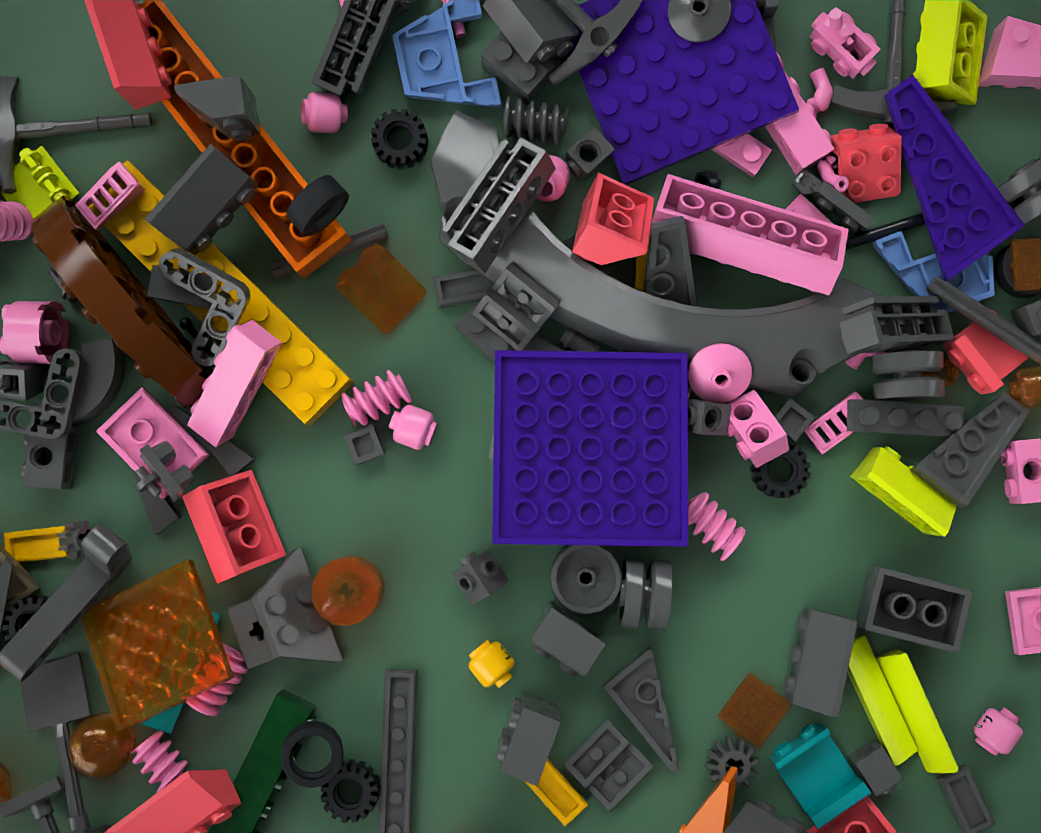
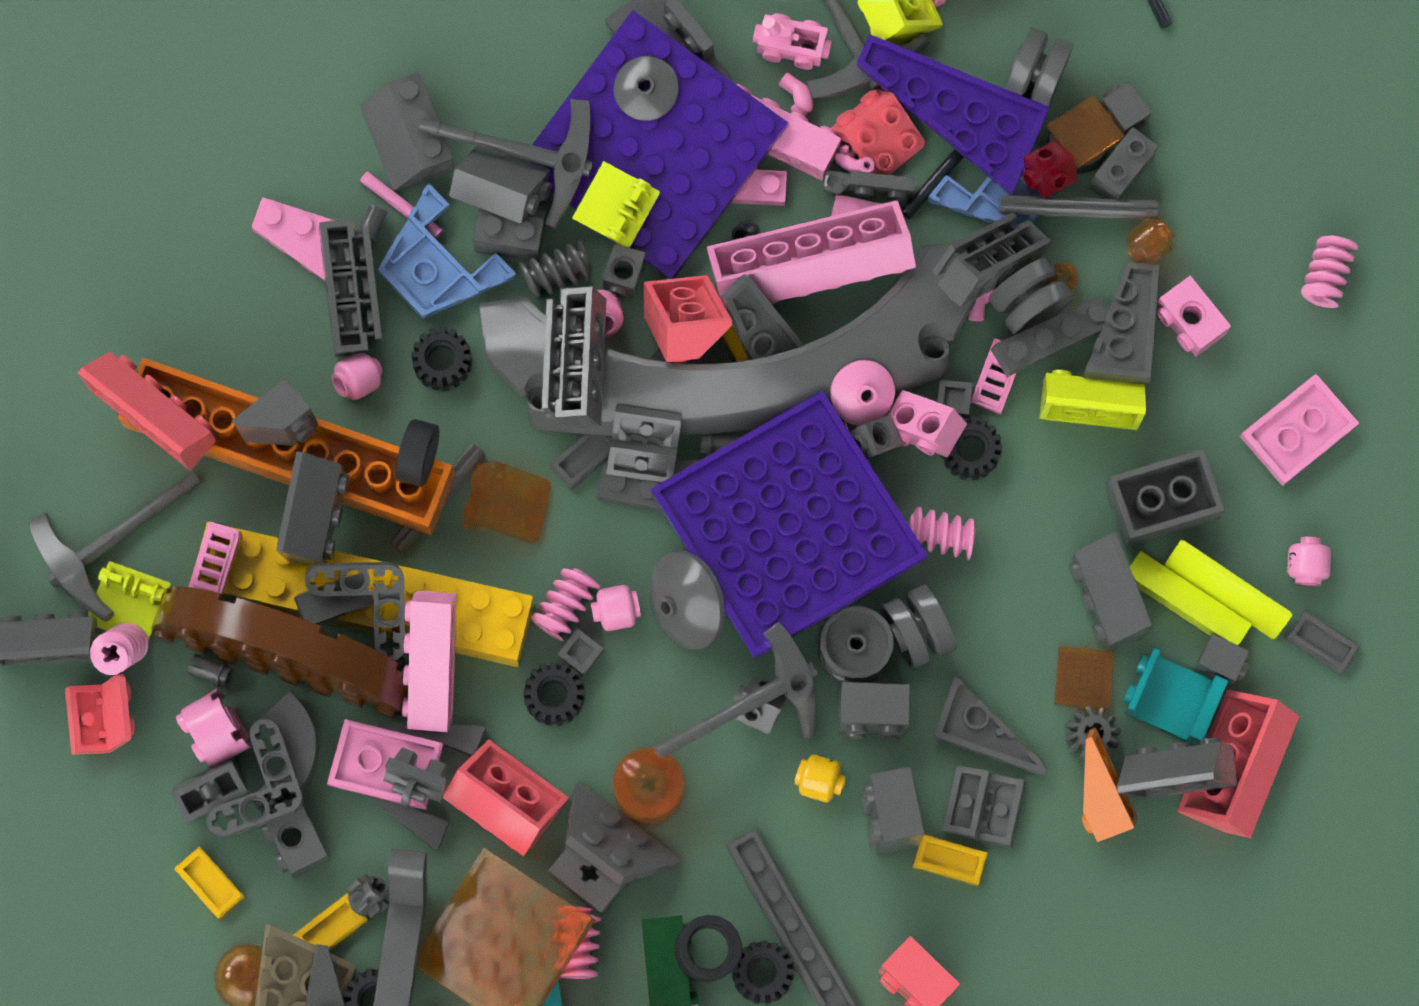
camera: 35 degrees left, 10 degrees down
(304, 471) = (561, 675): none -> black tyre
(470, 458) = (686, 600): none -> dark grey dish
(514, 577) = (792, 680): none -> dark grey piece
(615, 95) = (616, 204): none -> neon yellow hinge
(983, 357) = (1088, 242): coral bracket -> none
(992, 278) = (1049, 169): none -> dark red brick

